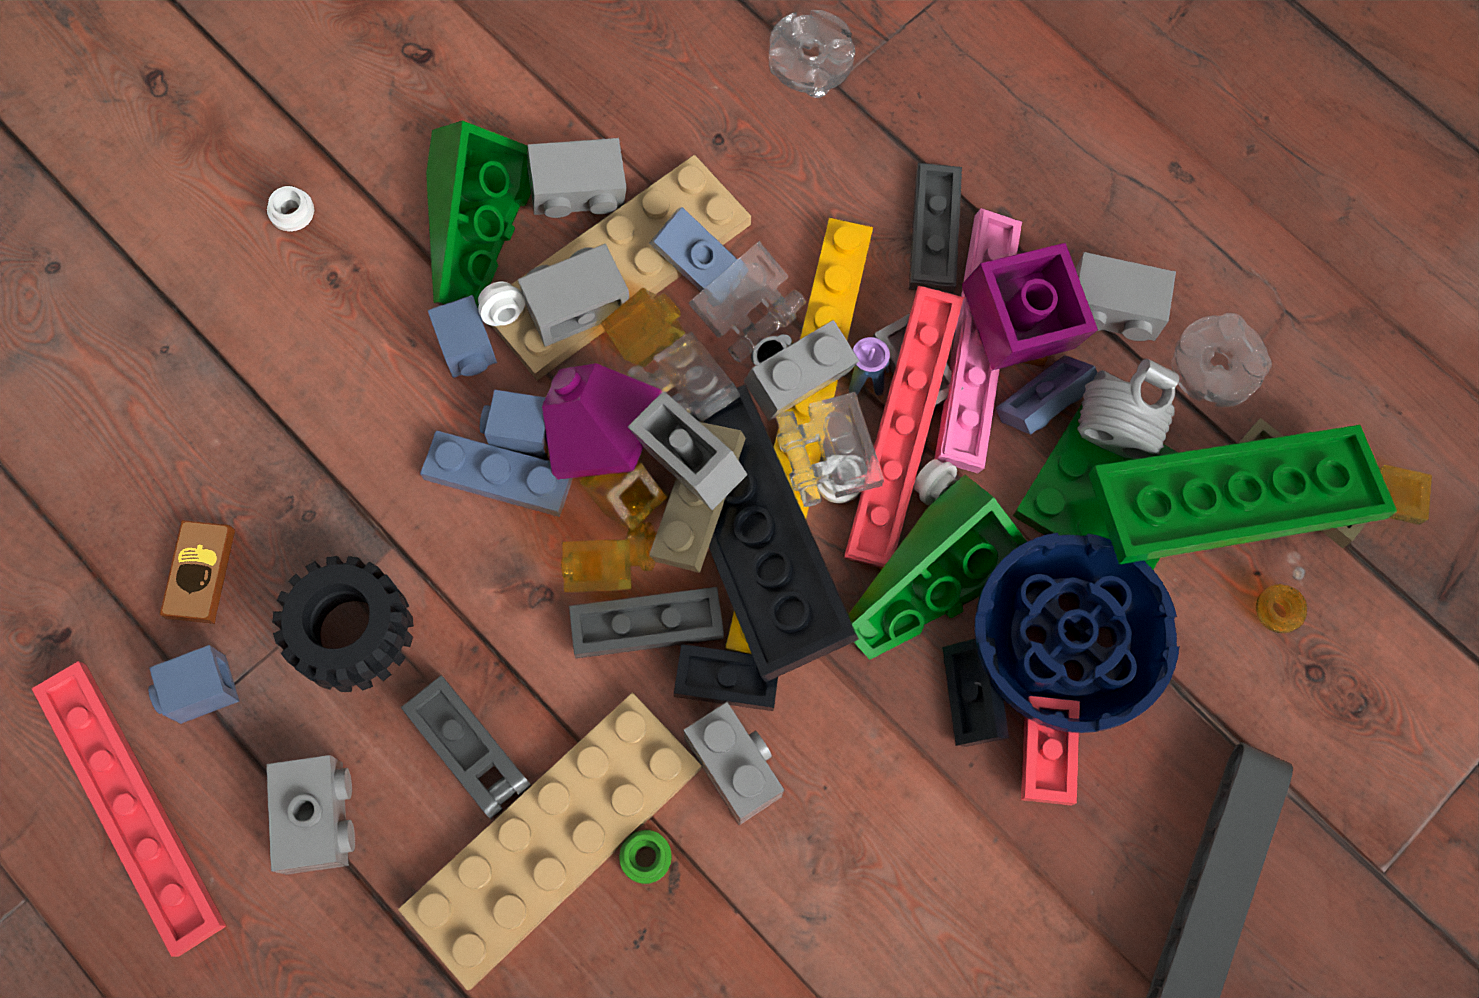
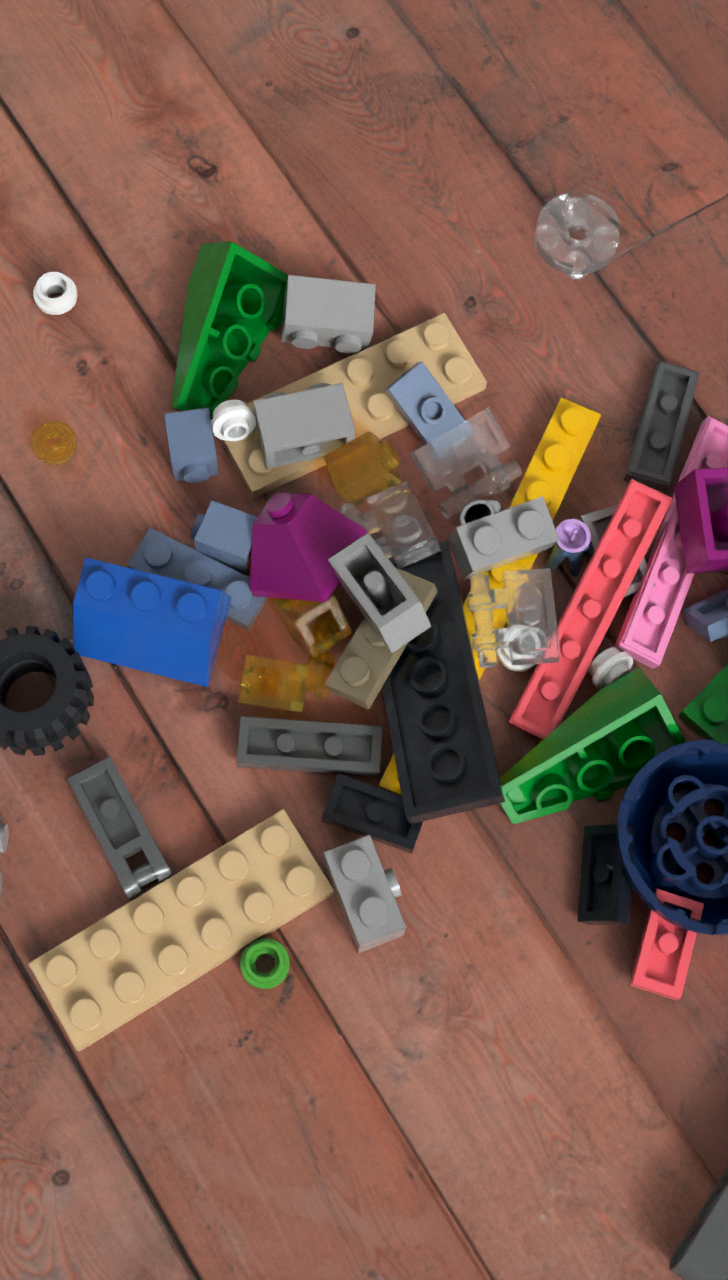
camera: 10 degrees right, 0 degrees up
(325, 372) = (57, 453): none -> clear yellow plate
(453, 527) = (148, 621): none -> blue slope

